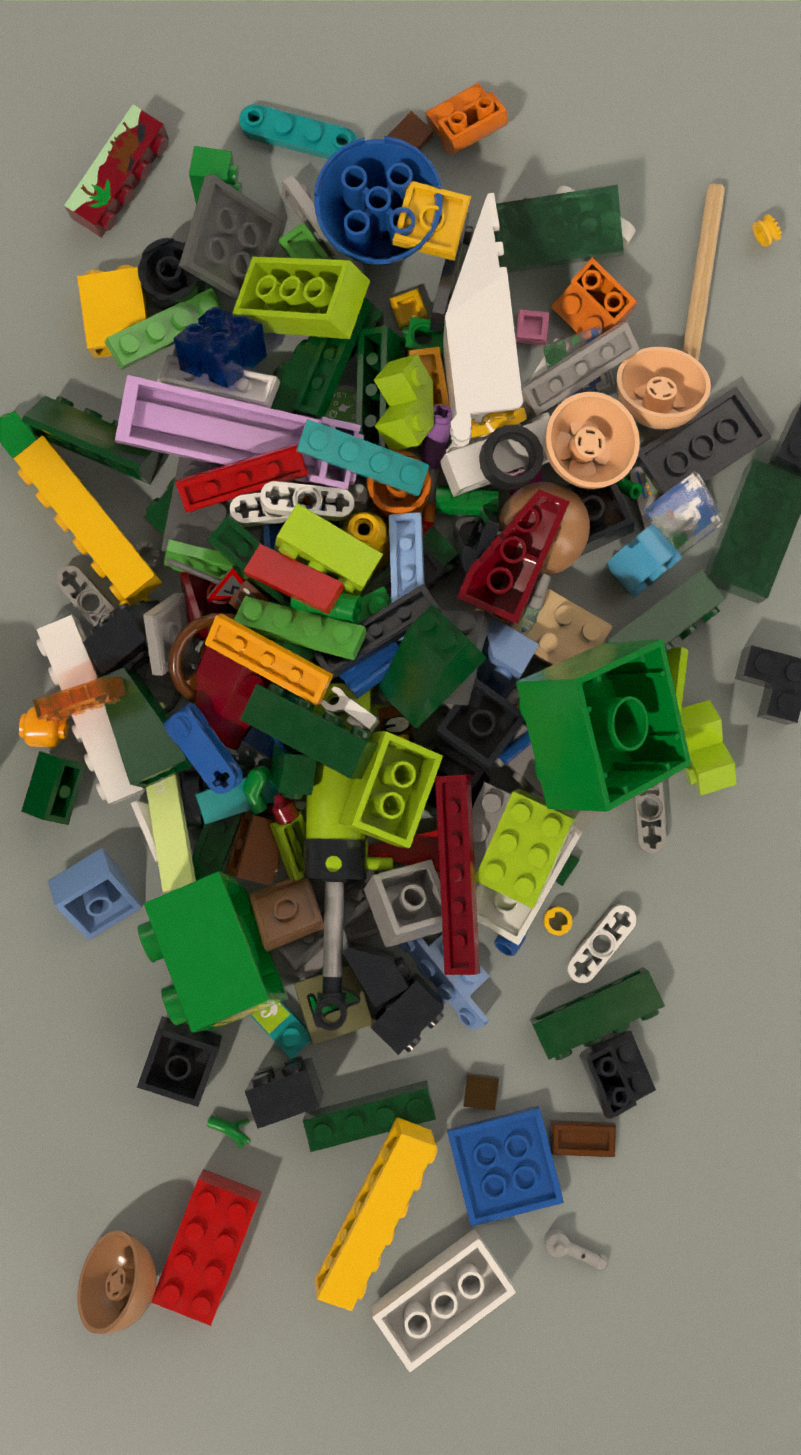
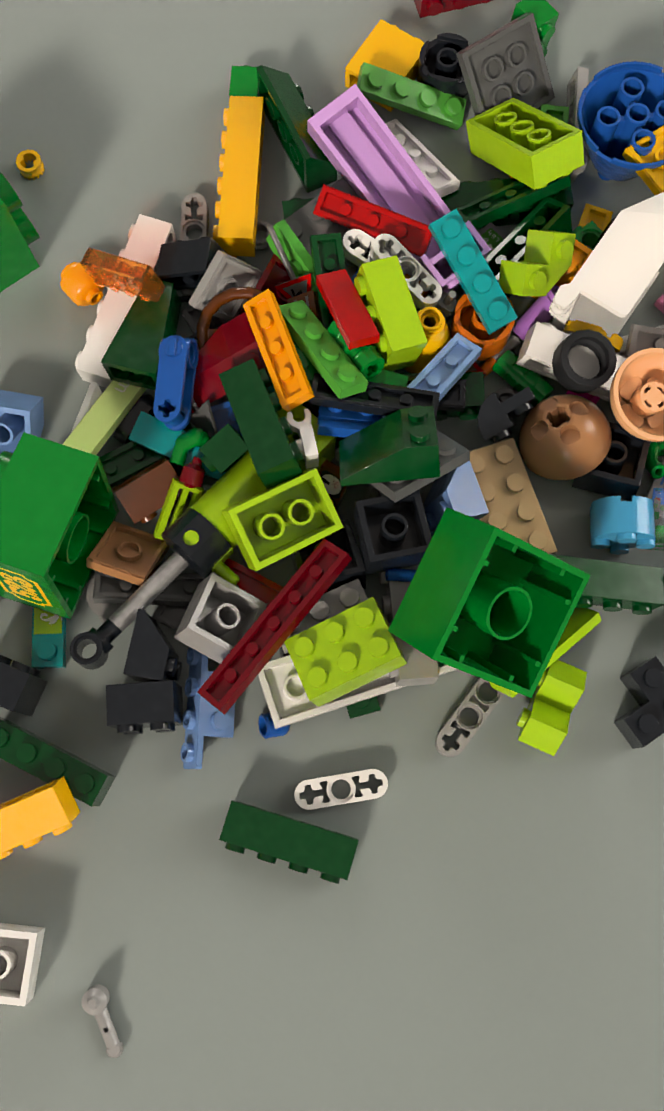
camera: 35 degrees right, 10 degrees down
(53, 788) = (49, 328): dark green brick -> none
(220, 346) = (438, 132): clear blue brick -> none
(293, 131) = (604, 39): teal plate -> none
(358, 1011) = (108, 674): olive tile -> none
(481, 1091) = (147, 821): dark brown tile -> none
(505, 1166) = (111, 898): blue plate -> none
(512, 563) = (517, 435): dark red wedge -> none
(535, 602) = (513, 482): light grey piece -> none
(564, 928) = (322, 731): yellow bush -> none
(583, 1138) = (191, 933): reddish brown tile -> none
(617, 1073) = (263, 903): black brick -> none

